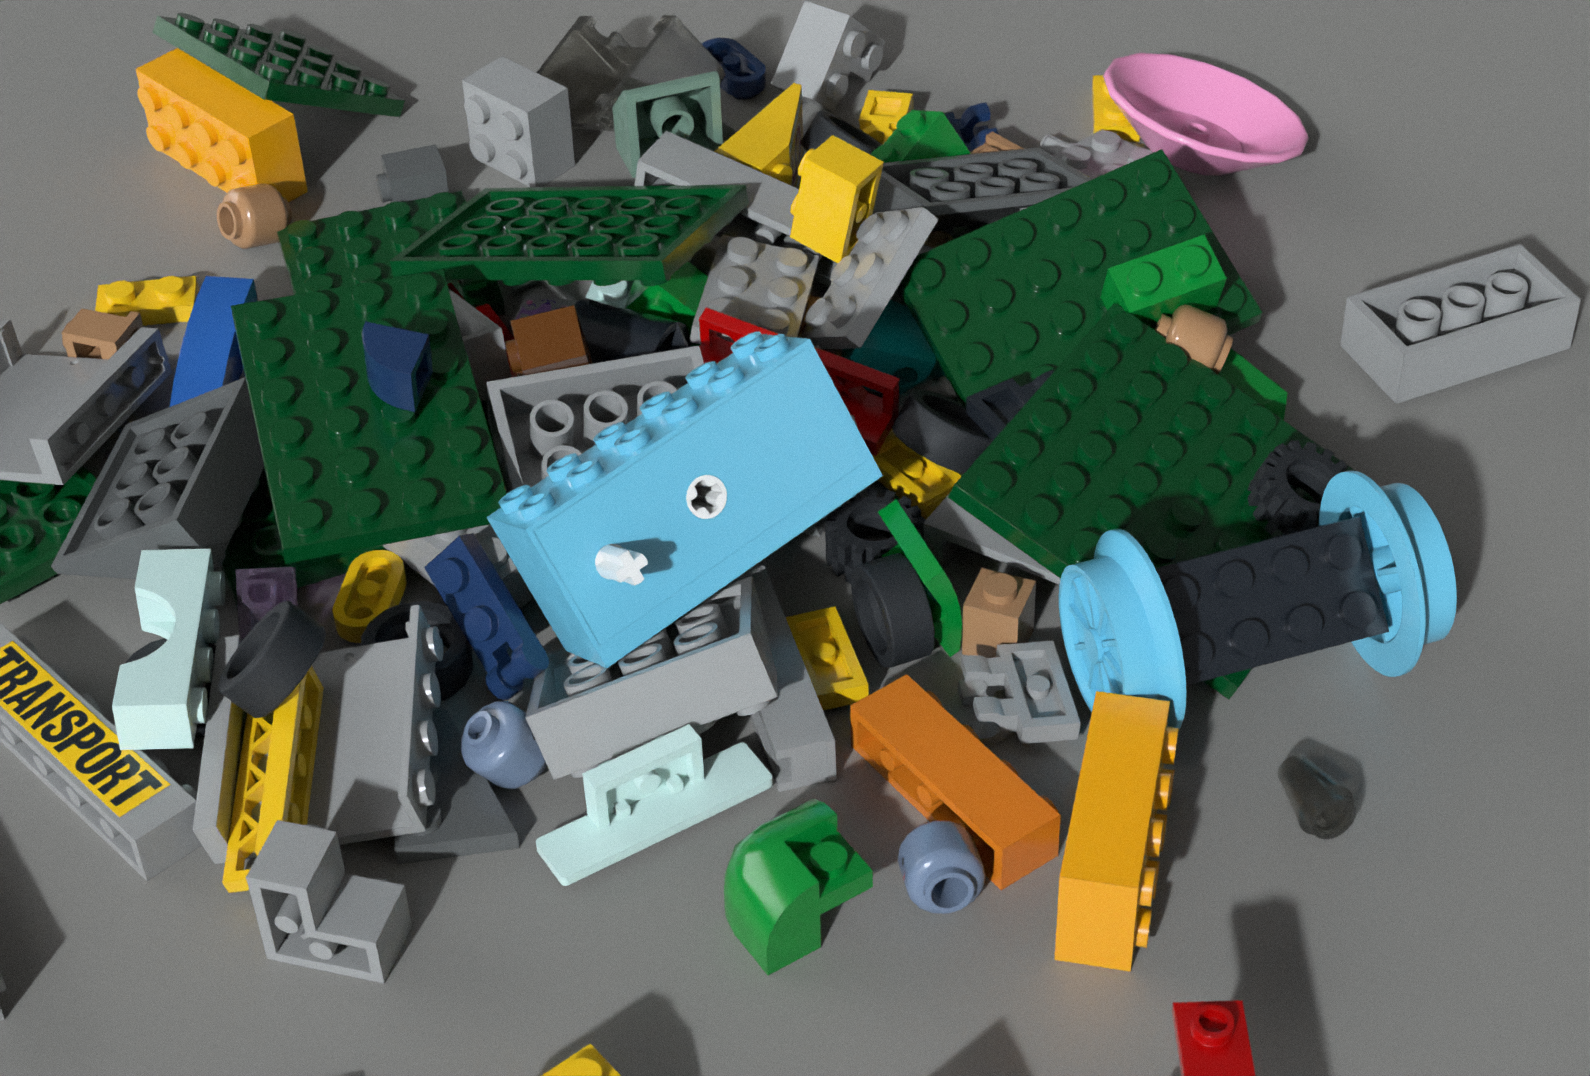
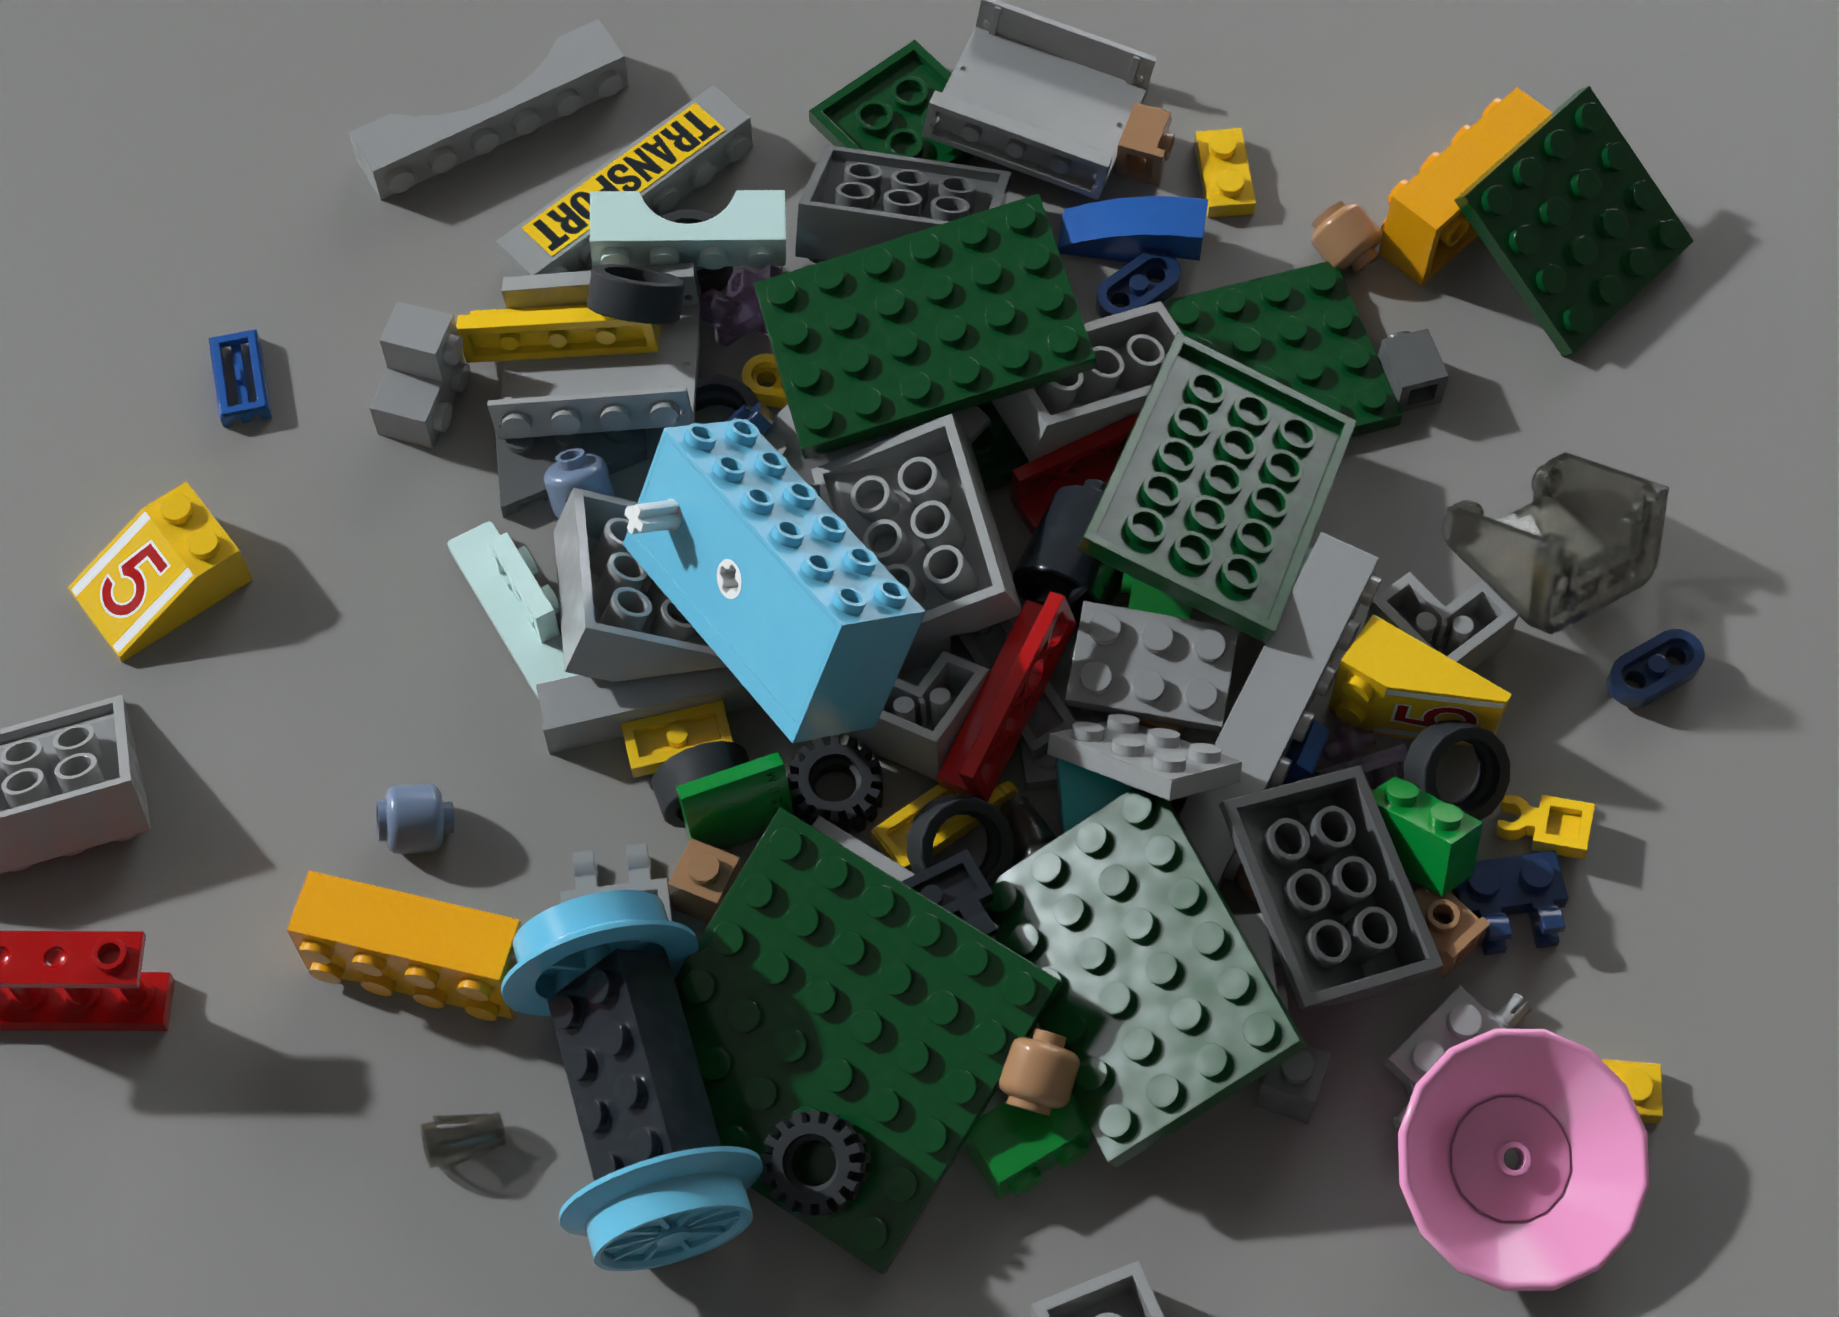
camera: 90 degrees right, 20 degrees up
(397, 364) = (930, 324): dark blue brick -> none
(519, 122) = (1491, 444): light grey brick -> none
(548, 342) = (1008, 473): reddish brown brick -> none
(680, 106) = (1416, 566): sand green slope -> none
(786, 879) = (409, 698): green brick -> none
(824, 53) = (1654, 752): light grey brick -> none
(834, 197) = (1235, 708): yellow brick -> none
(955, 778) = (515, 832): orange brick -> none
(1166, 280) = (1094, 1036): green brick -> none

